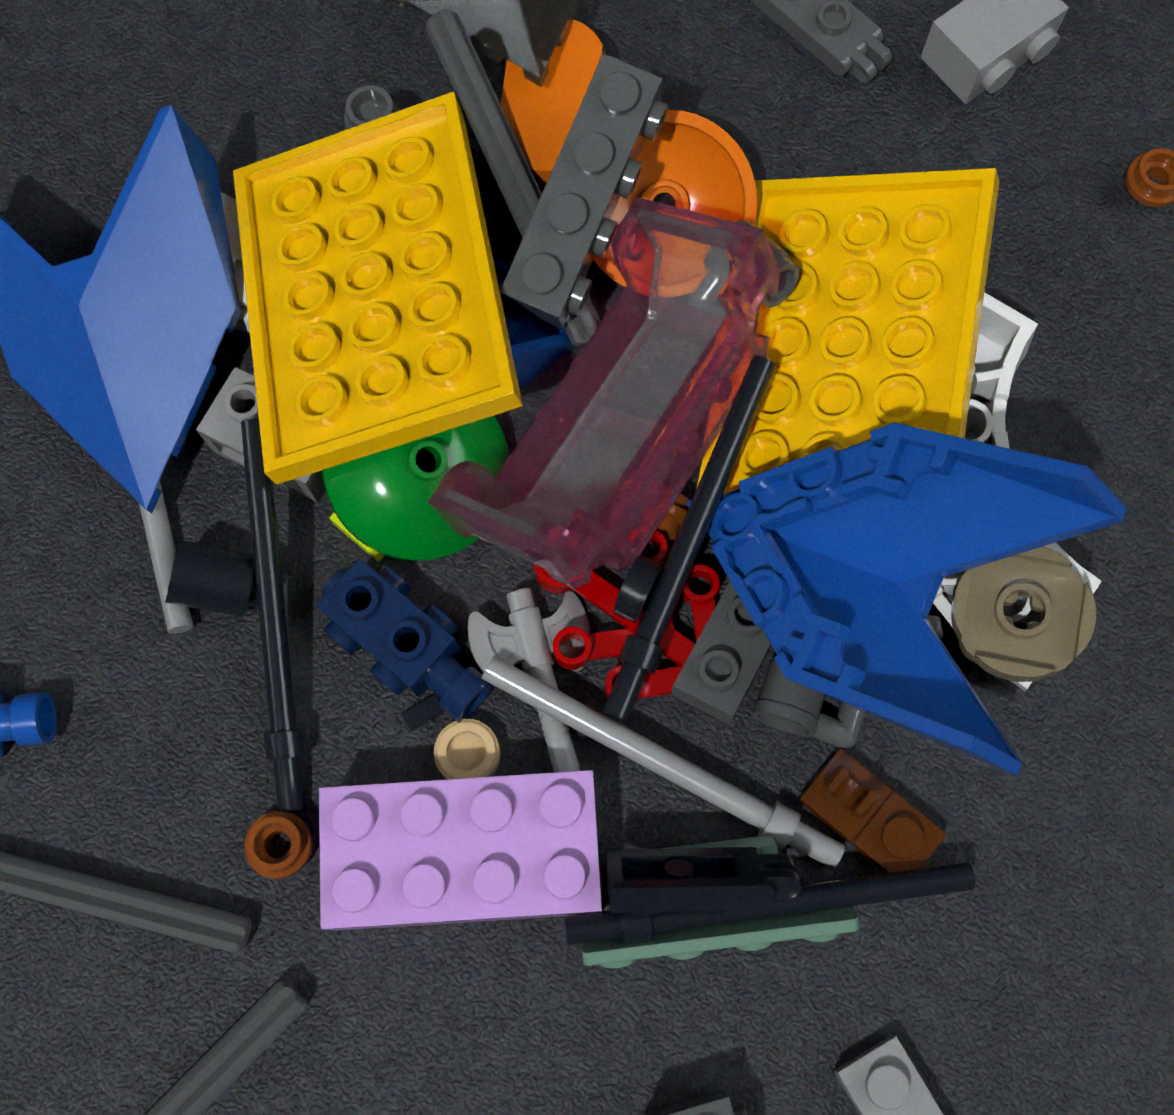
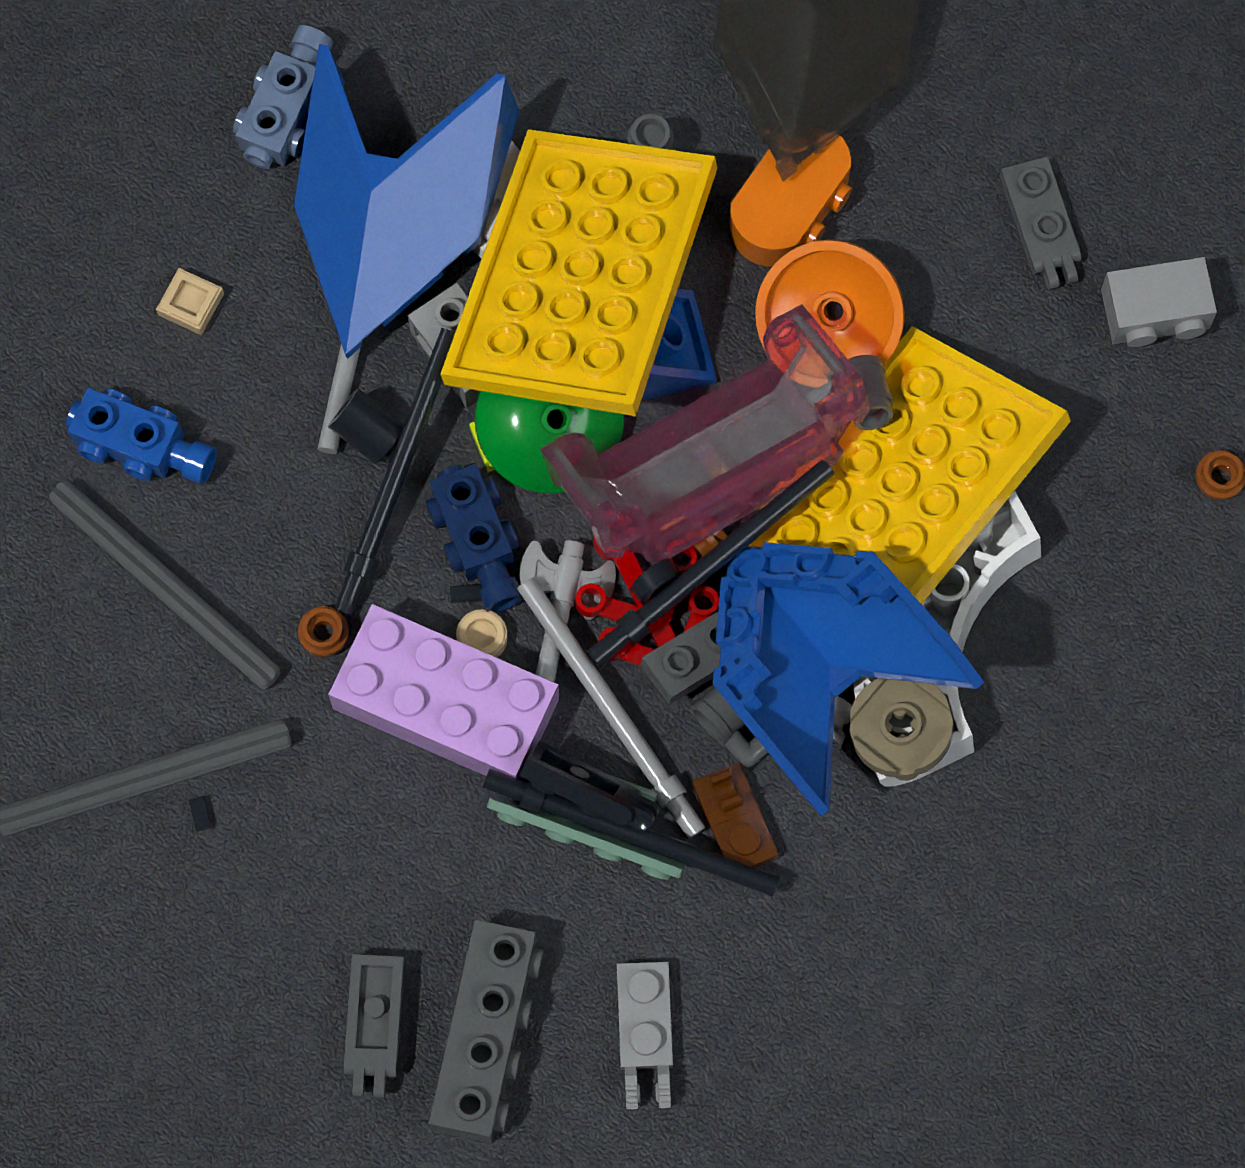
camera: 25 degrees right, 0 degrees up
(496, 139) = (728, 239): dark grey axle -> none
(583, 191) = (762, 283): dark grey brick -> none

